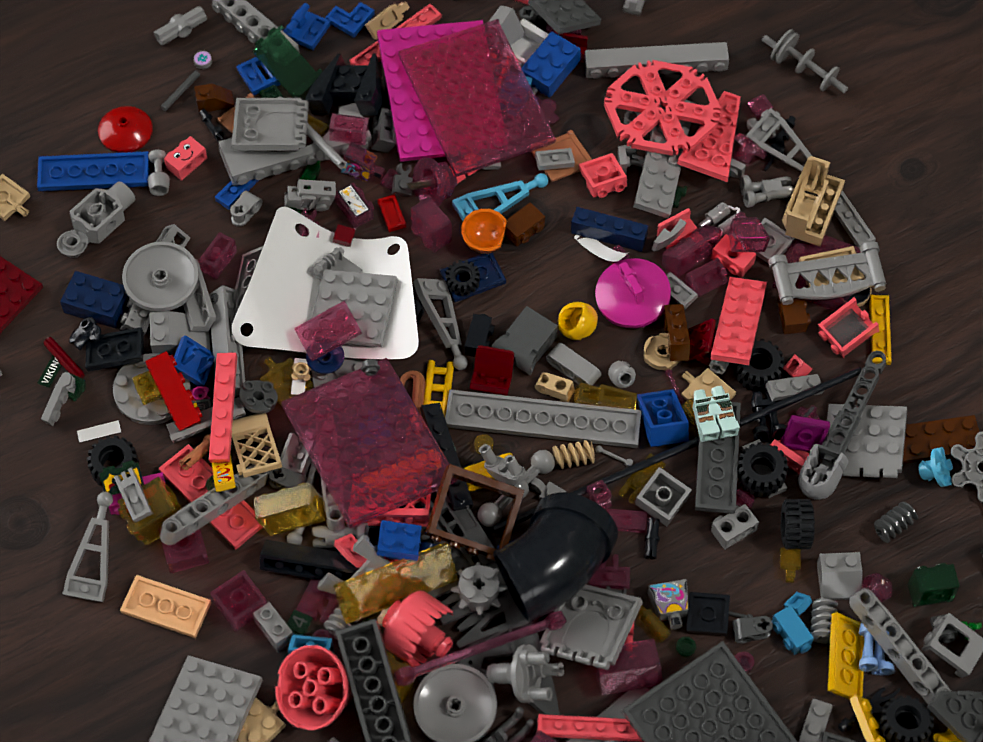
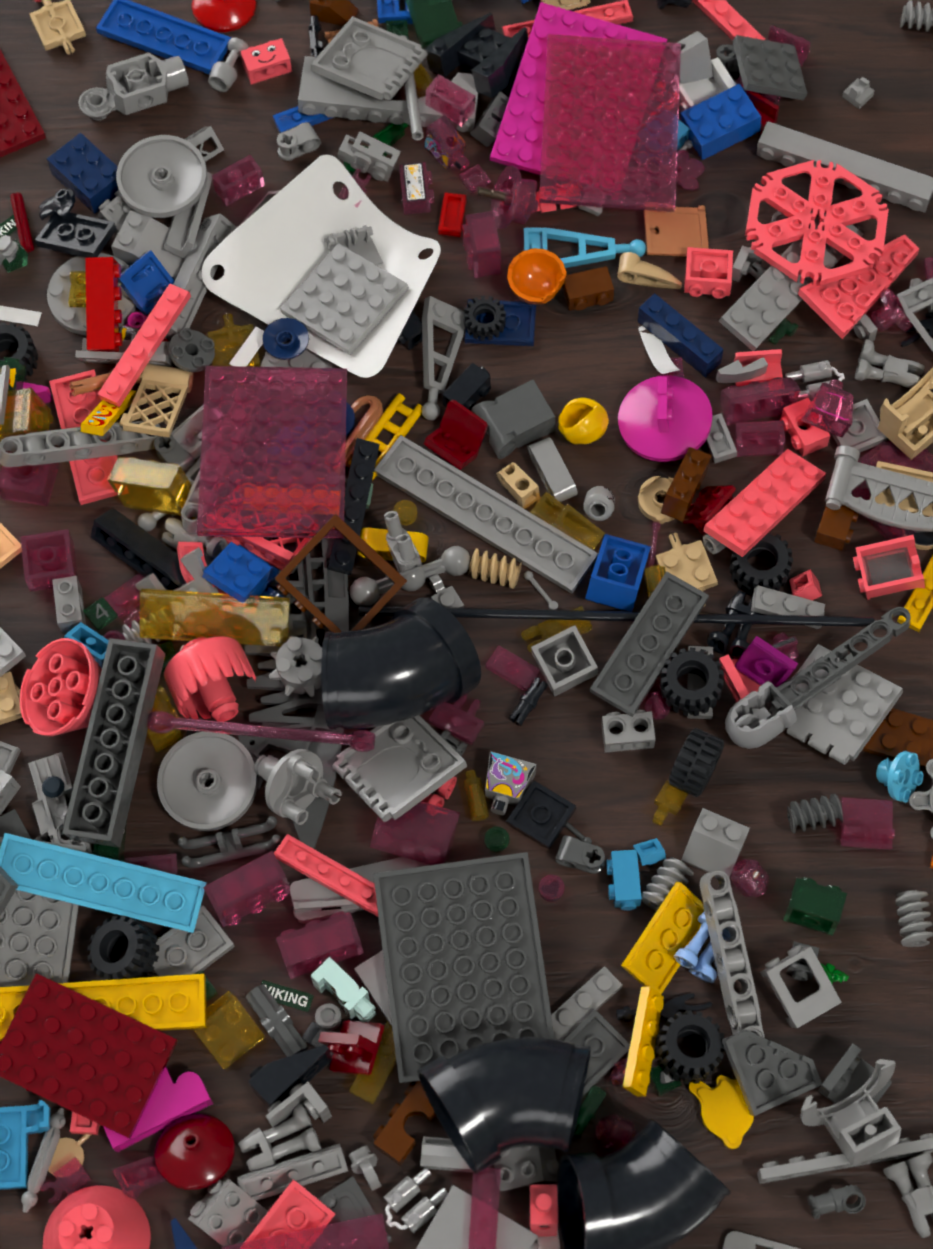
camera: 30 degrees right, 5 degrees up
(301, 366) = (251, 338): tan plate -> none
(328, 331) = (300, 311): clear pink plate -> none
(344, 235) = (386, 216): dark red tile -> none
(370, 367) = (318, 370): dark grey plate -> none
(400, 181) = (483, 181): dark grey plate -> none
(554, 159) = (663, 230): light grey plate -> none
(558, 196) = (638, 272): none -> tan piece
(601, 498) = (494, 632): clear pink leg -> none
(714, 415) = (668, 586): light aqua hips -> none
(933, 512) = (867, 823): none -> clear pink hinge

